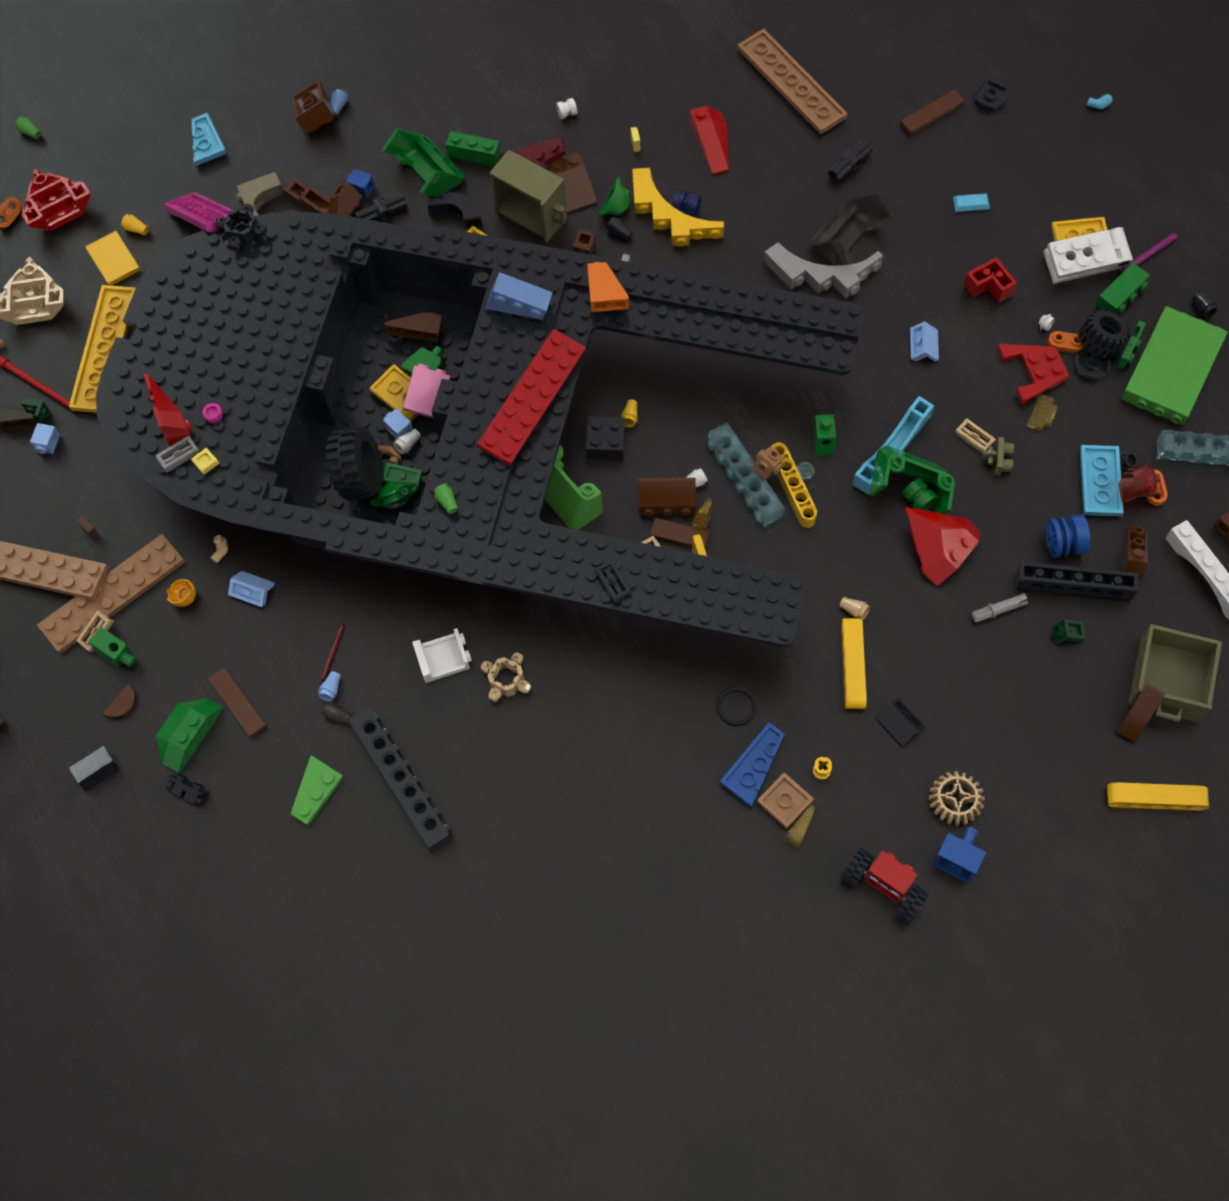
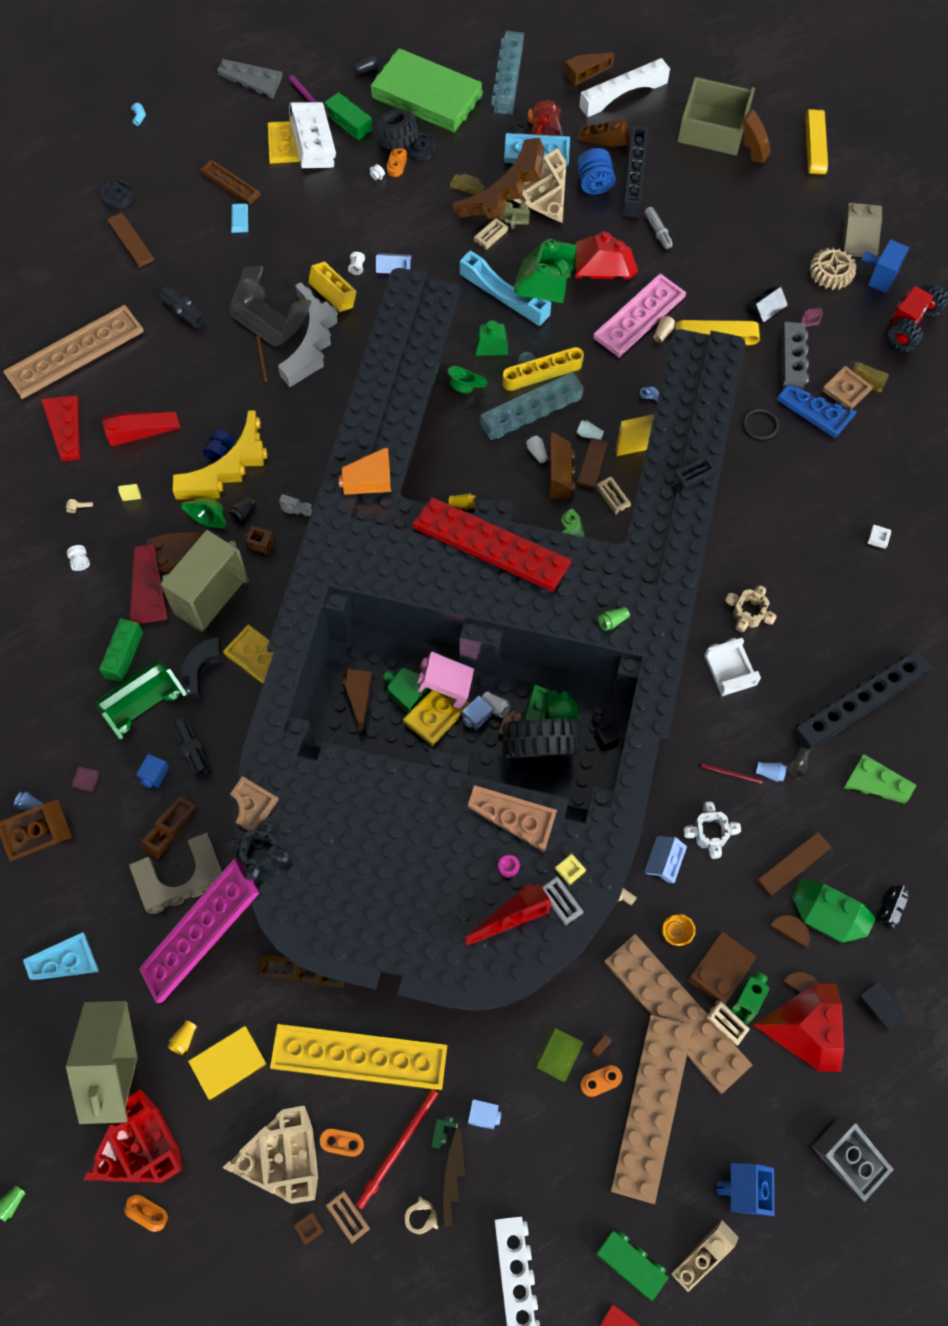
camera: 95 degrees left, 0 degrees up
(37, 340) = (342, 1142): none -> orange plate
(61, 529) = (601, 1080): none -> orange plate
(85, 701) = (810, 1027): none -> red wedge
(87, 499) = (560, 1055): none -> clear neon green plate
(105, 158) = (102, 1062): none -> olive container
(143, 630) = (722, 969): none -> reddish brown slope
(176, 694) = (793, 929): none -> reddish brown tile
(256, 416) = (519, 817): none -> nougat wing
(274, 614) = (715, 843): none -> white piece
(285, 222) = (253, 804): none -> medium nougat tile
(344, 200) = (189, 789): reddish brown slope -> none
(358, 139) = (85, 779): none -> clear pink plate
(518, 297) = (377, 553): medium blue wedge -> none
(591, 816) = (879, 536): none -> white plate
(622, 99) = (73, 504): none -> tan hand
(703, 515) = (579, 439): clear yellow slope -> none
(710, 84) = (64, 424): none -> red wing
(718, 528) = (589, 430): none -> light aqua cone
(768, 462) = (529, 379): medium nougat brick -> none
(773, 409) = (464, 380): none -> green piece
(792, 235) = (262, 362): none -> reddish brown axle
(815, 736) = (794, 355): none -> dark grey brick
(822, 774) = (816, 359): yellow bush -> none
(873, 583) = (639, 315): none -> bright pink plate
(881, 284) = (332, 286): none -> yellow brick
(883, 768) = (812, 317): none -> clear pink plate
(919, 308) = (356, 263): none -> white bush
(991, 277) = (332, 203): red brick -> none
(1018, 190) = (230, 182): none -> reddish brown tile
(1018, 838) = (862, 229): none -> dark tan slope
(1025, 441) = (509, 187): none -> reddish brown arch
(1036, 477) = (547, 193): none -> tan wedge
(1042, 365) = (422, 179): red wing -> none
(1069, 630) = (679, 184): dark green bracket -> none
(1134, 343) = (401, 103): green wing -> none
(1169, 202) = (256, 77): none -> dark grey wing

